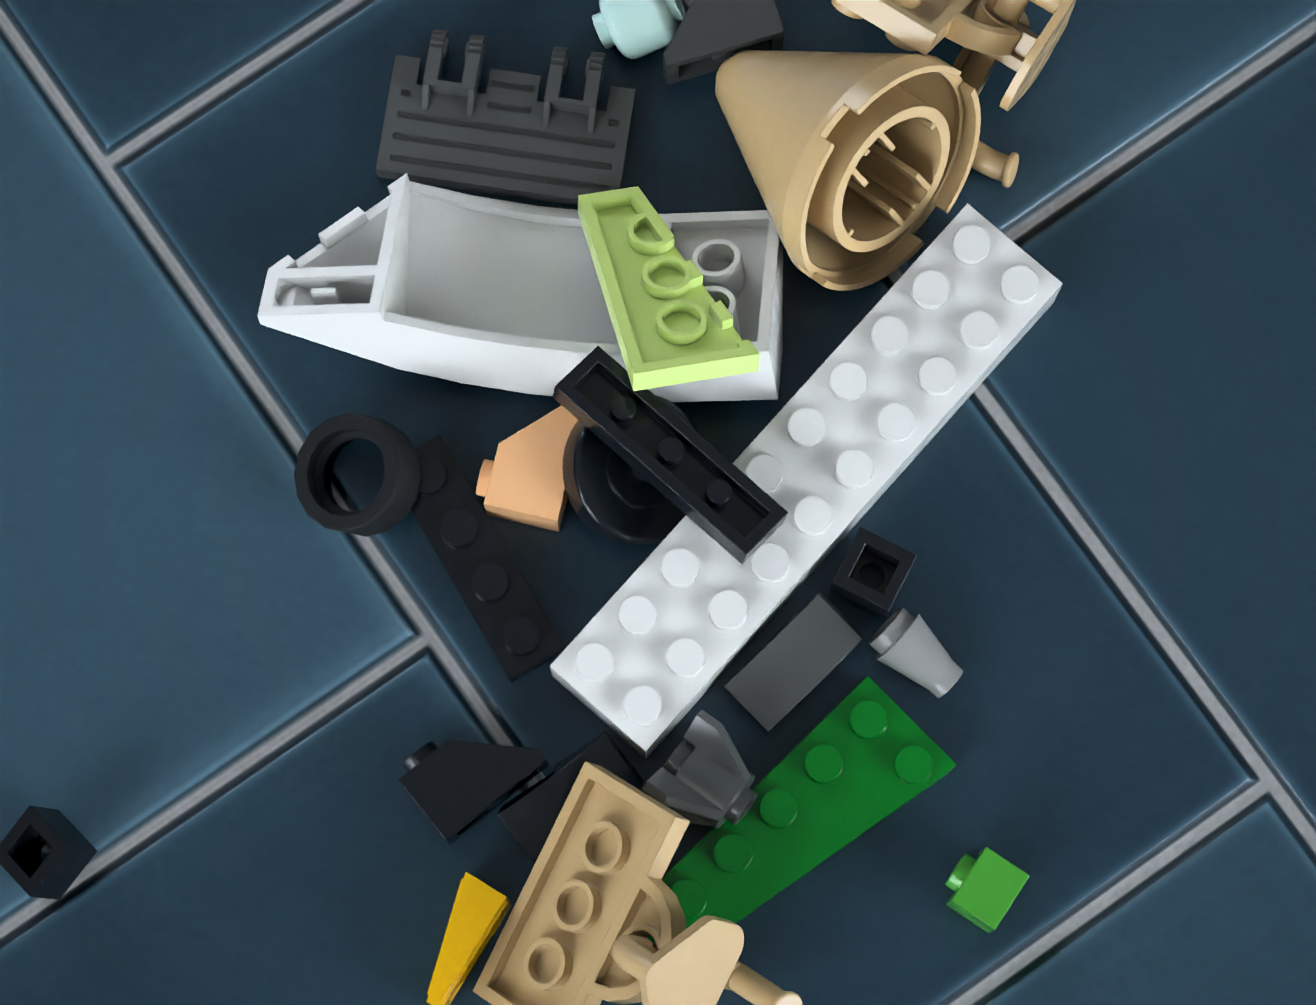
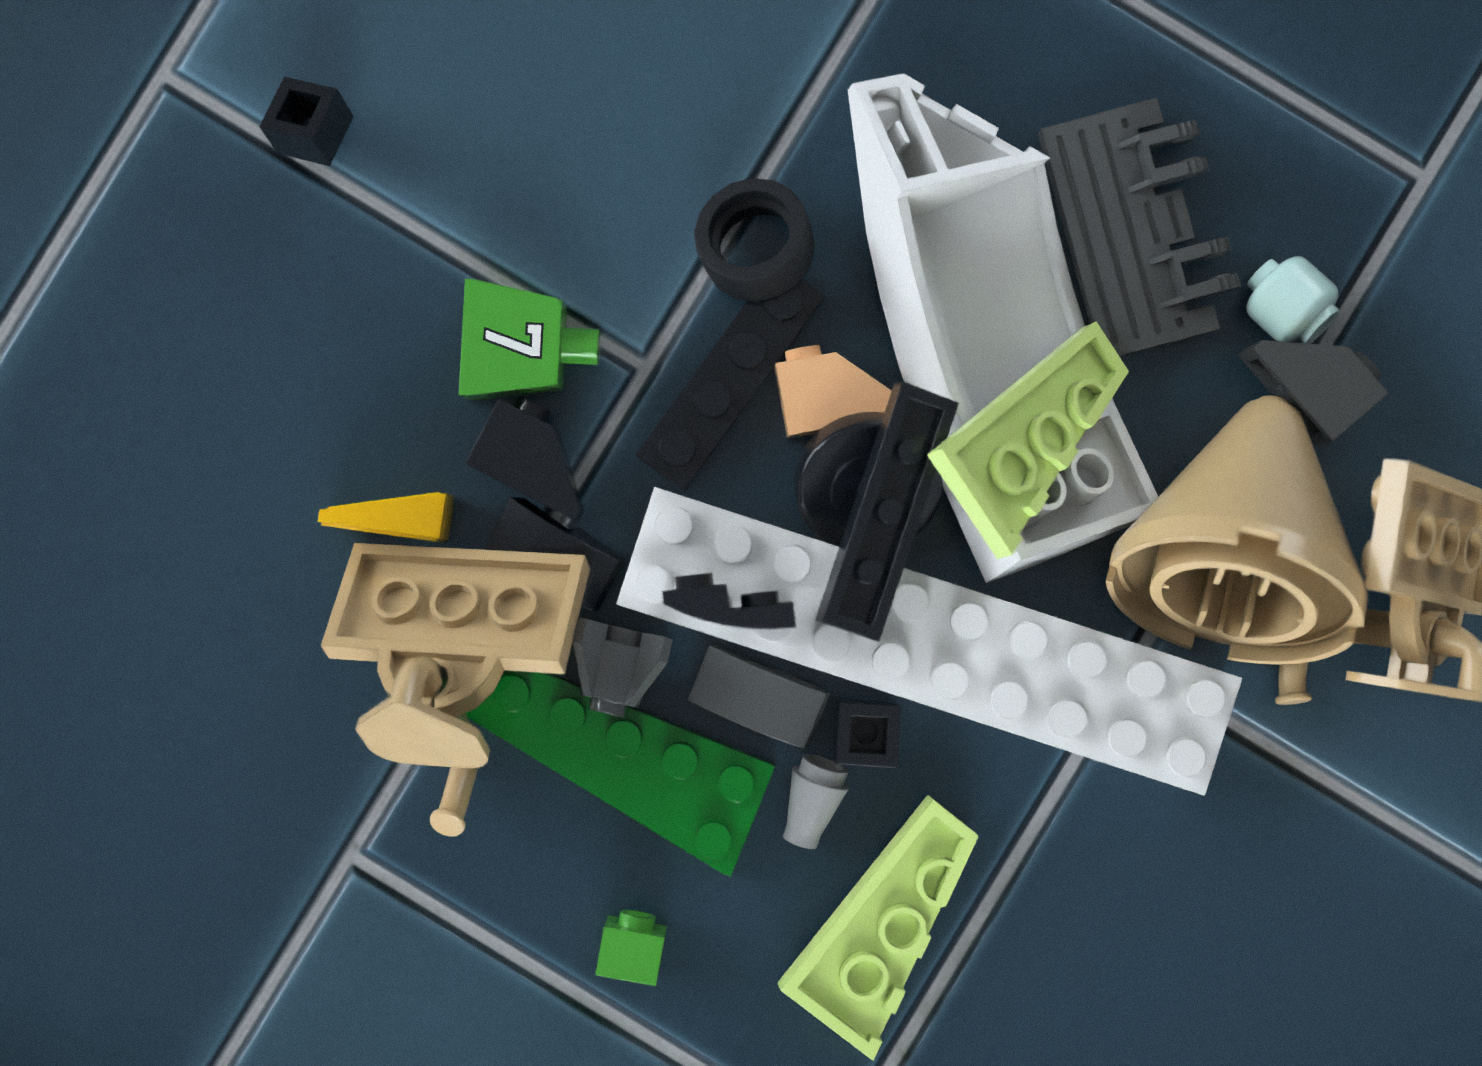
camera: 60 degrees right, 10 degrees up
(351, 742) = (518, 342): none -> bright green torso
(684, 652) = (702, 599): none -> black slope
(1077, 659) = (866, 949): none -> yellowish green wing

